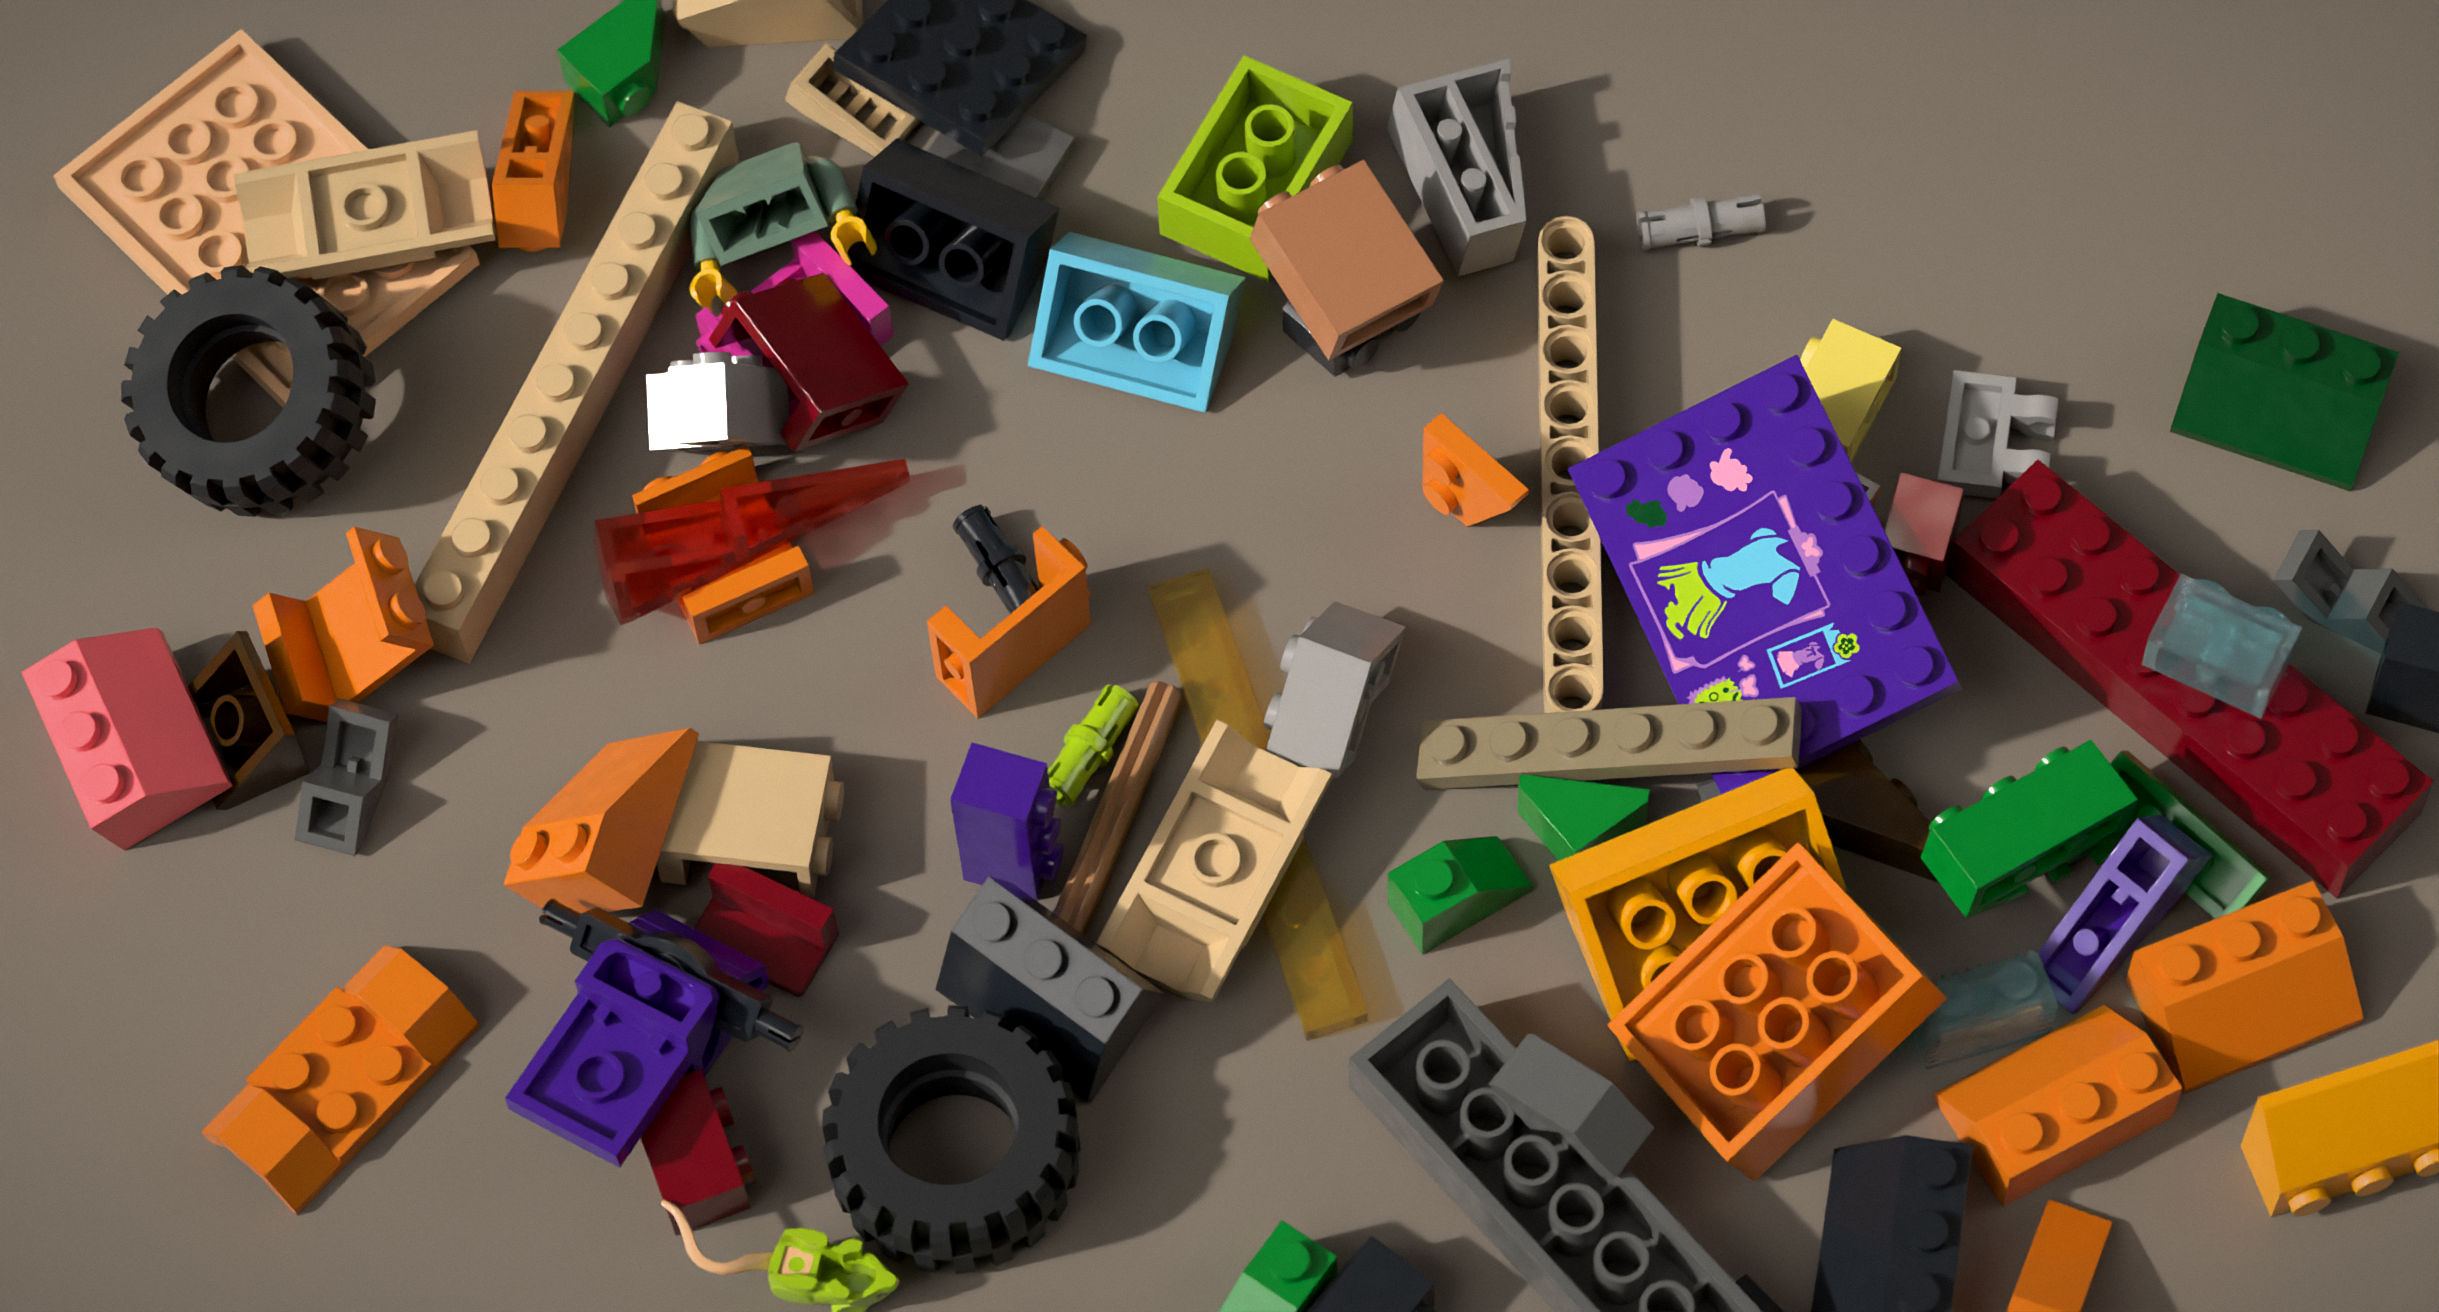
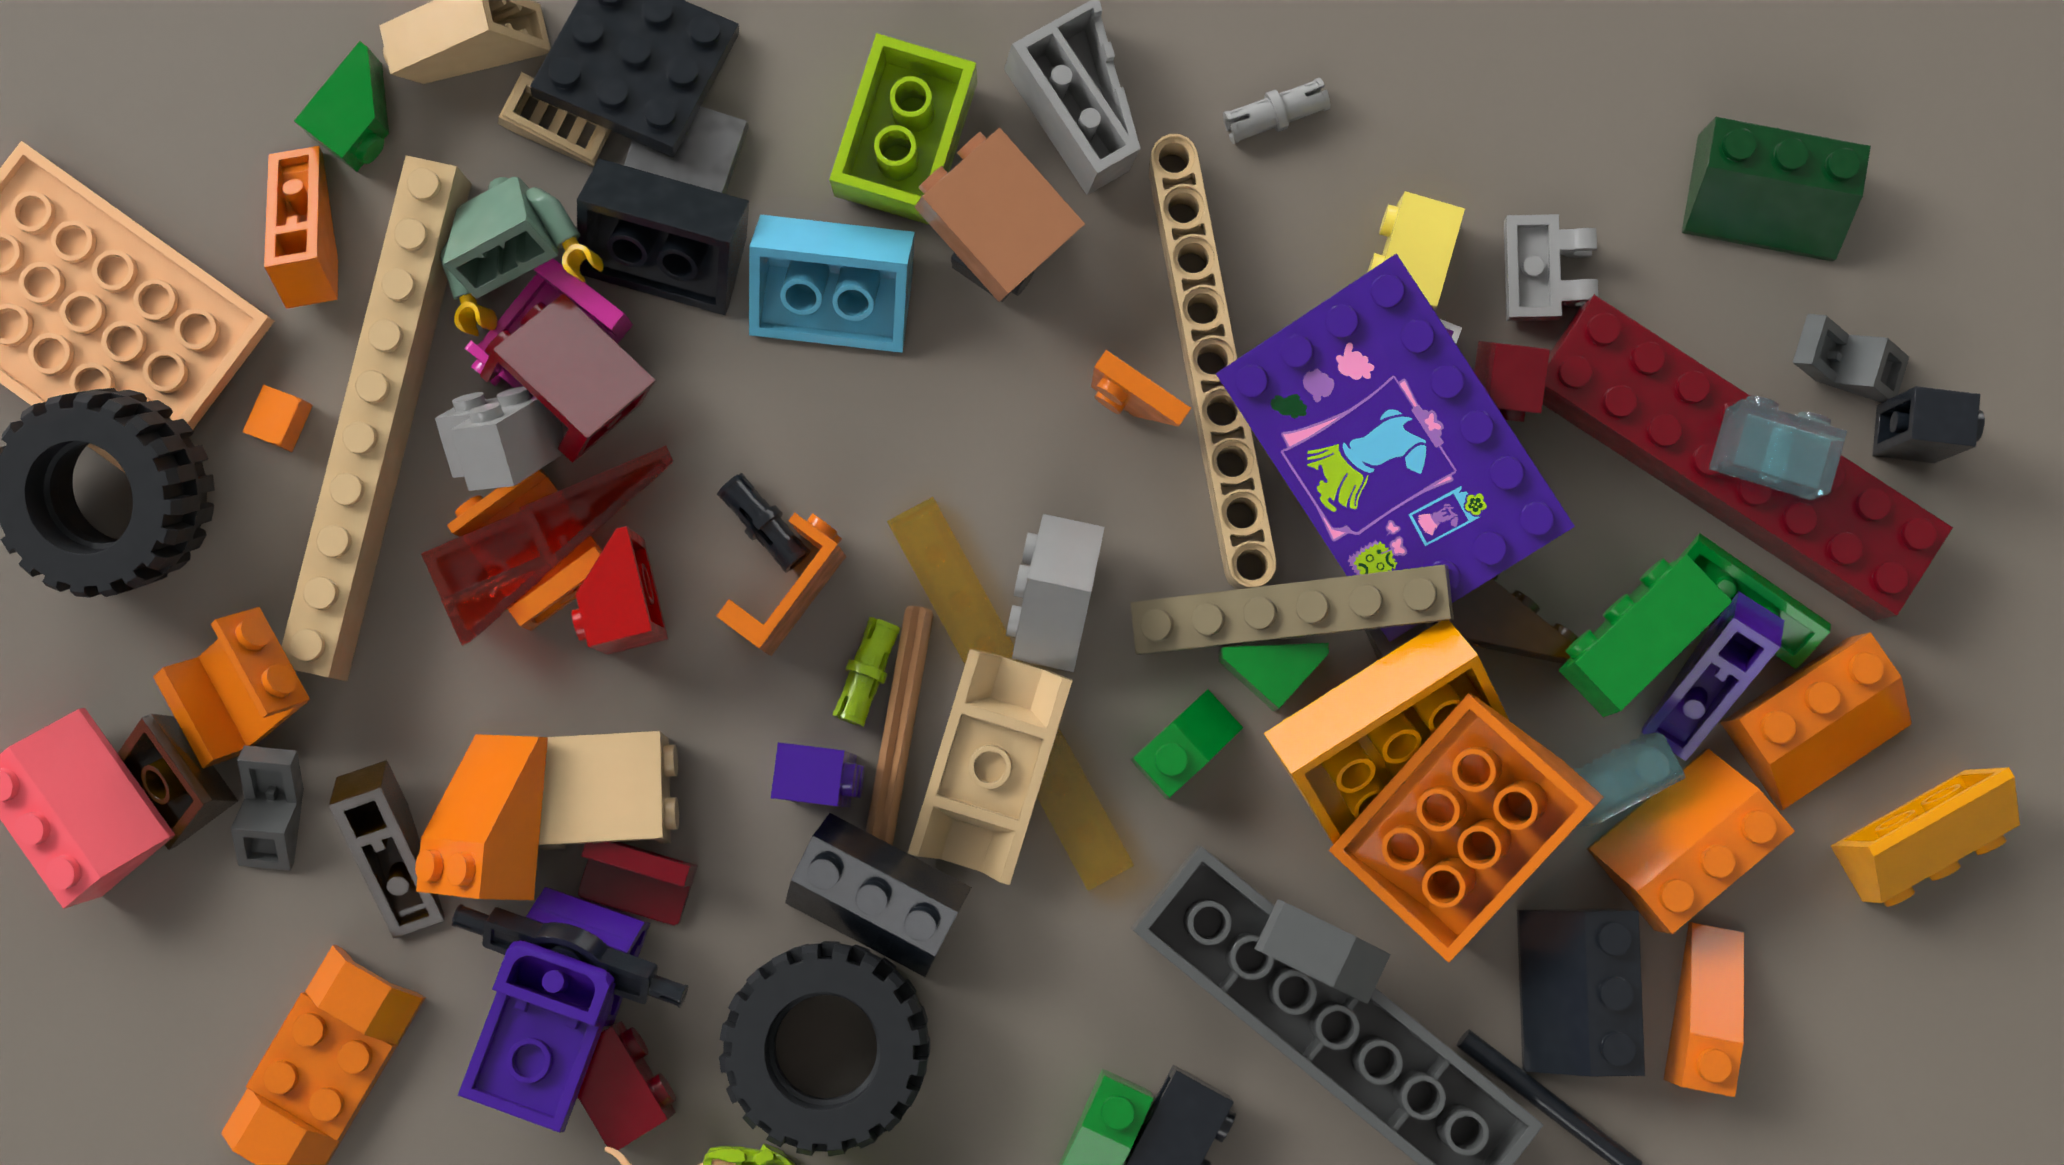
camera: 15 degrees left, 20 degrees up
(367, 207) = (164, 301): tan piece -> none
(459, 365) = (277, 418): none -> orange slope
(477, 845) = (384, 845): none -> dark brown slope
(814, 608) = (619, 598): none -> red slope

